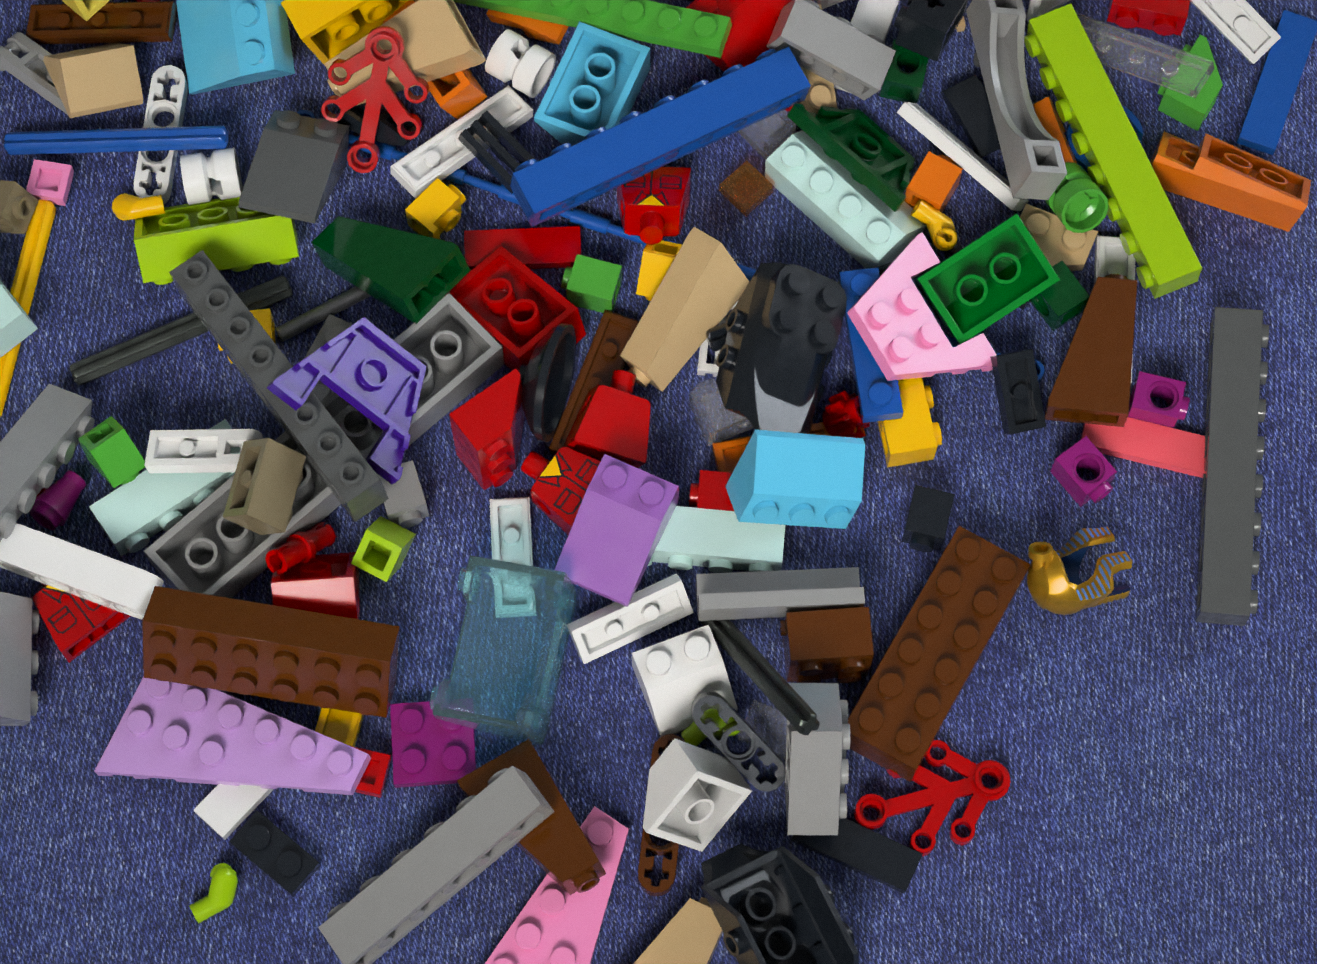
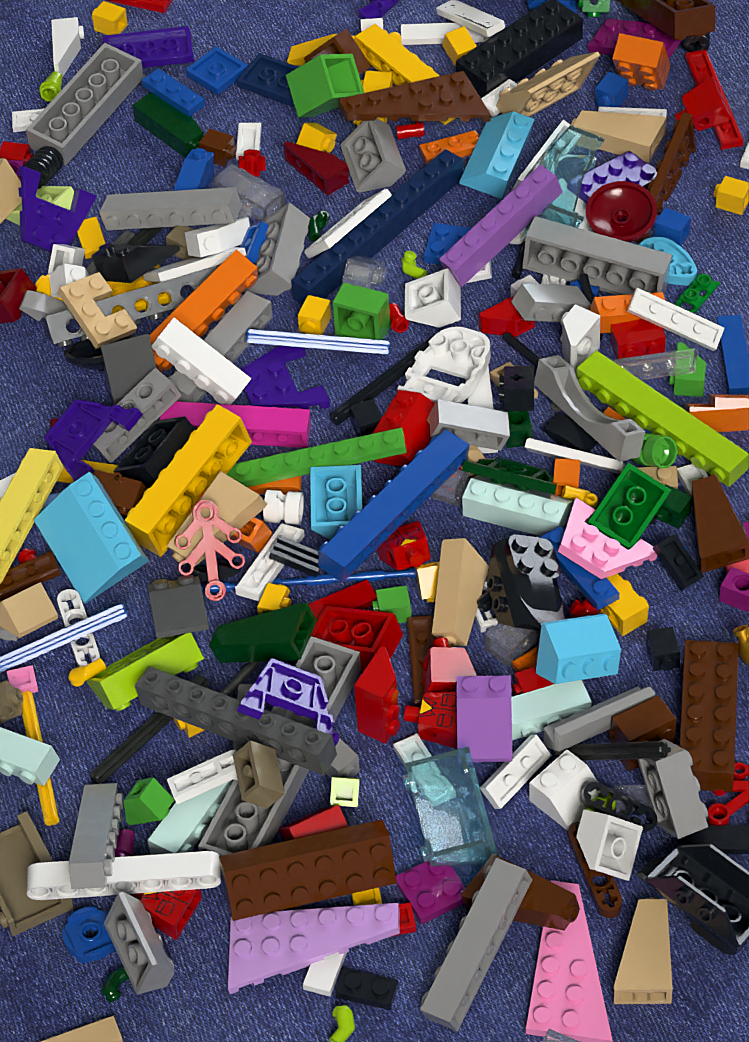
camera: 20 degrees left, 20 degrees down
(211, 176) = (126, 636): white wheel -> none
(300, 548) = (293, 810): red pin -> none
(548, 381) = (393, 643): black dish -> none
(746, 188) = (456, 522): clear orange plate -> none

